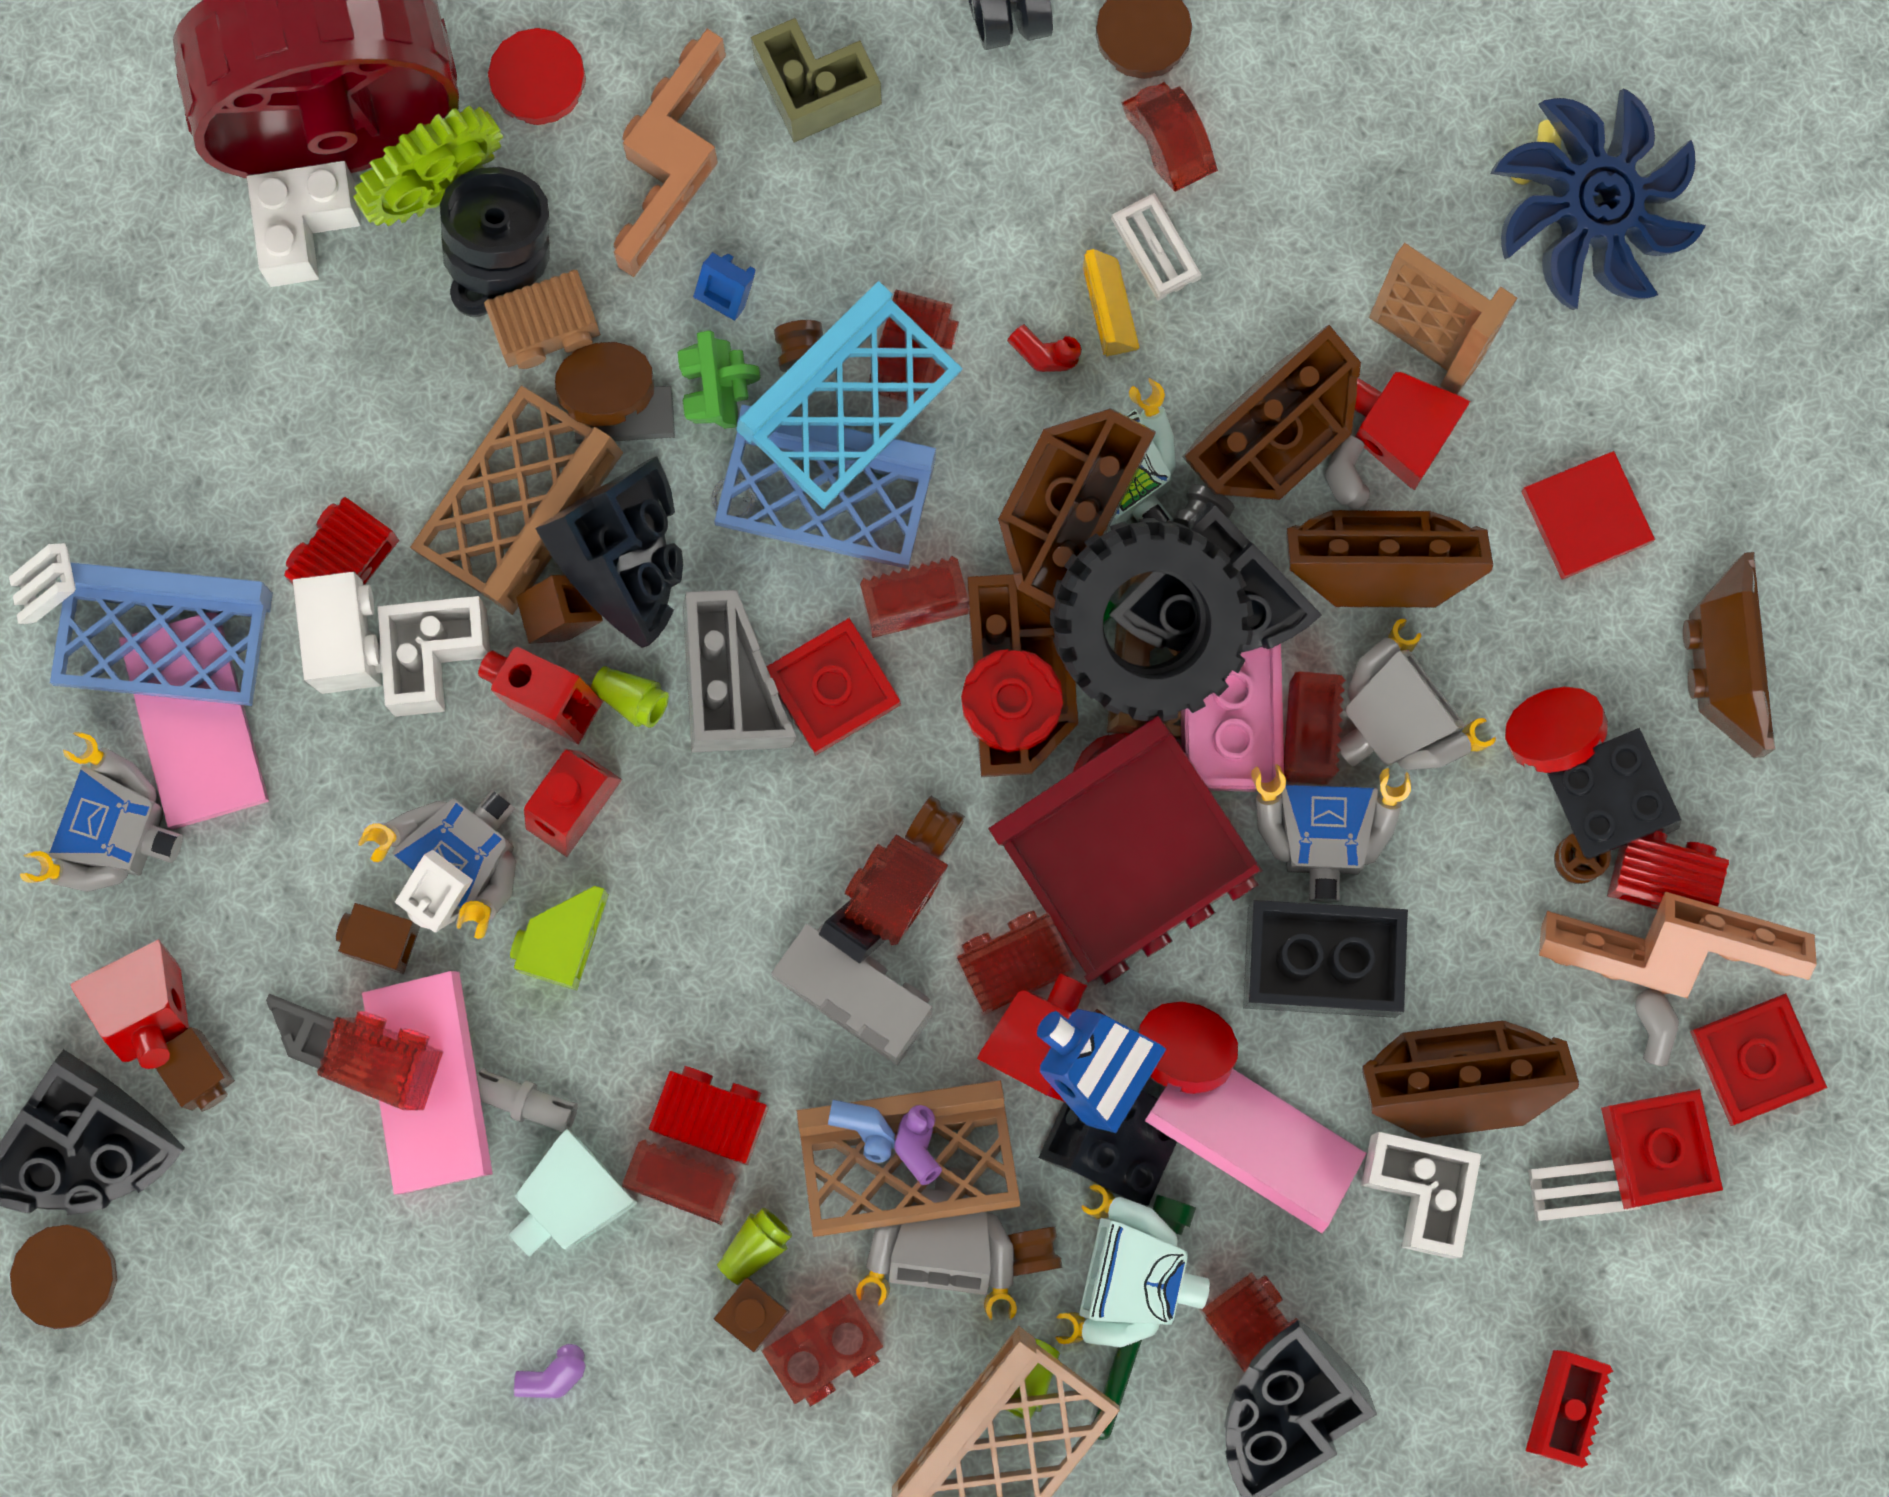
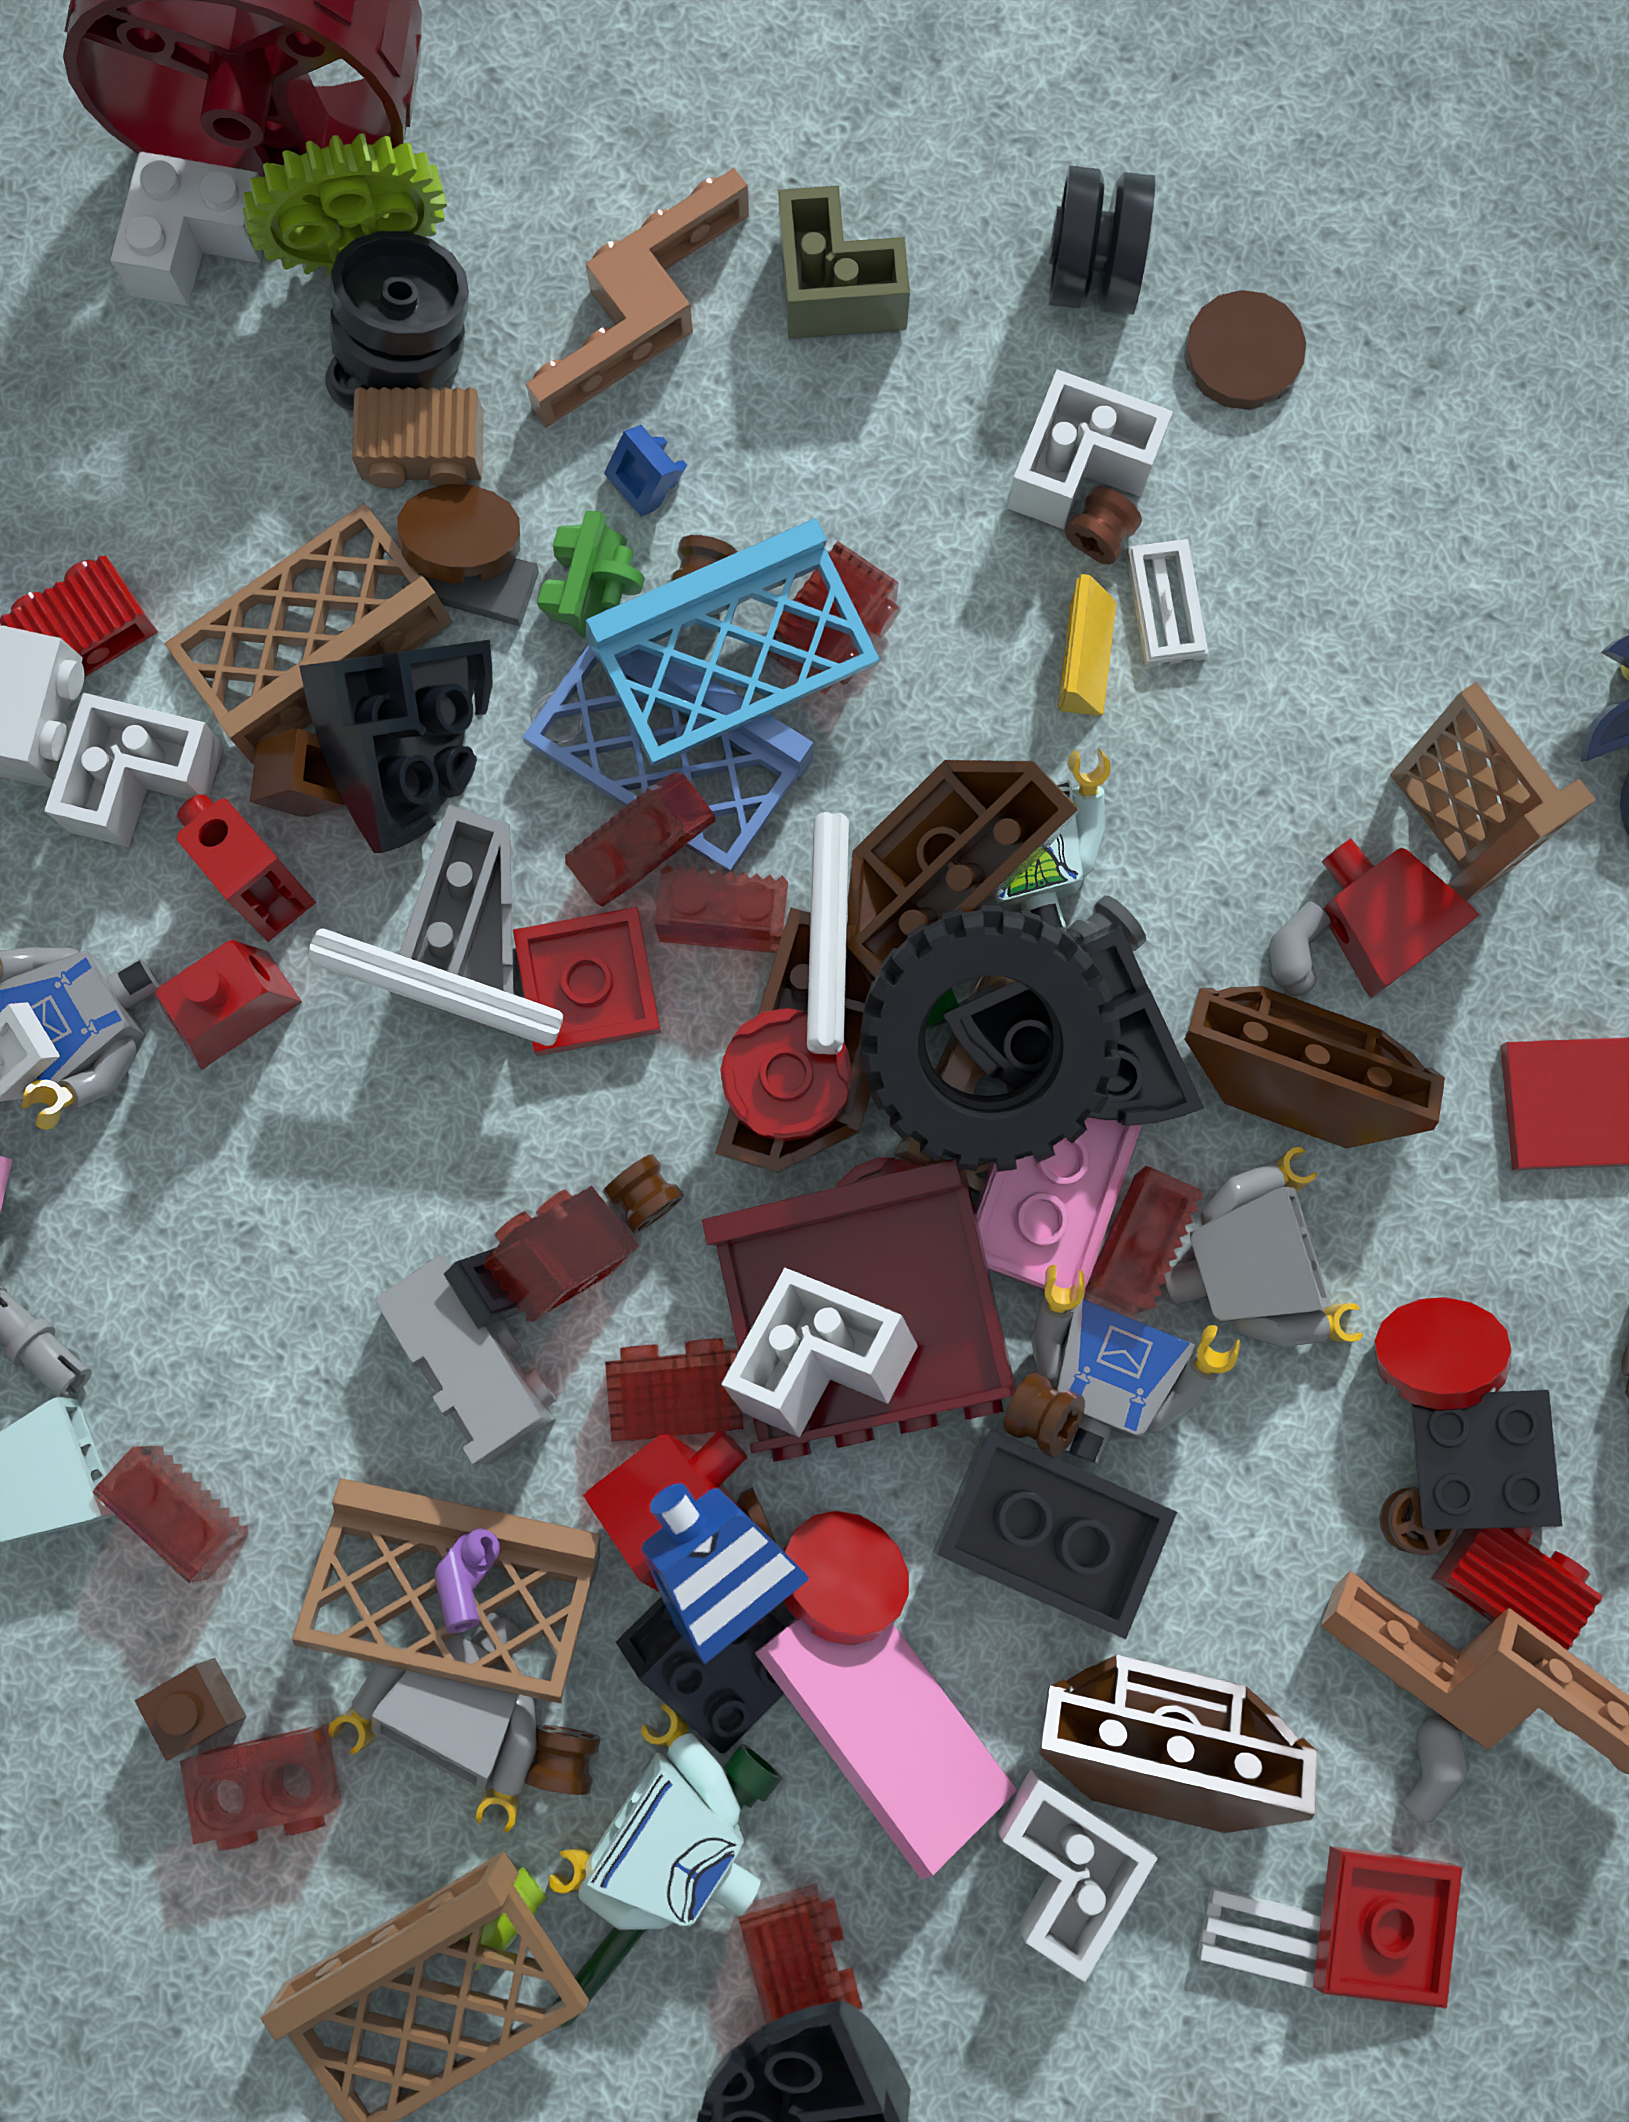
camera: 20 degrees right, 0 degrees up
(537, 76) = (524, 163): red tile -> none
(560, 939) = (149, 1165): lime slope -> none
(632, 696) = (347, 904): lime cone -> none
(709, 1116) = (239, 1443): red brick -> none
(731, 729) = (435, 987): none -> white axle
(754, 1246) = (232, 1622): lime cone -> none
(835, 566) = (639, 838): none -> clear red brick
(870, 1126) = (415, 1530): medium blue arm -> none
(1004, 585) = (828, 934): none -> white axle
(1045, 356) = (987, 685): red arm -> none
(1049, 141) = (1081, 435): none -> white brick
(1087, 204) = (1103, 524): none -> copper wheel
(1102, 881) = (813, 1337): none -> white brick
(1173, 134) = (1234, 477): clear red brick -> none
(1281, 423) = (1240, 860): reddish brown wedge -> none
(1288, 875) = (1044, 1414): none -> reddish brown wheel
(1758, 1059) = (1549, 1857): red tile -> none

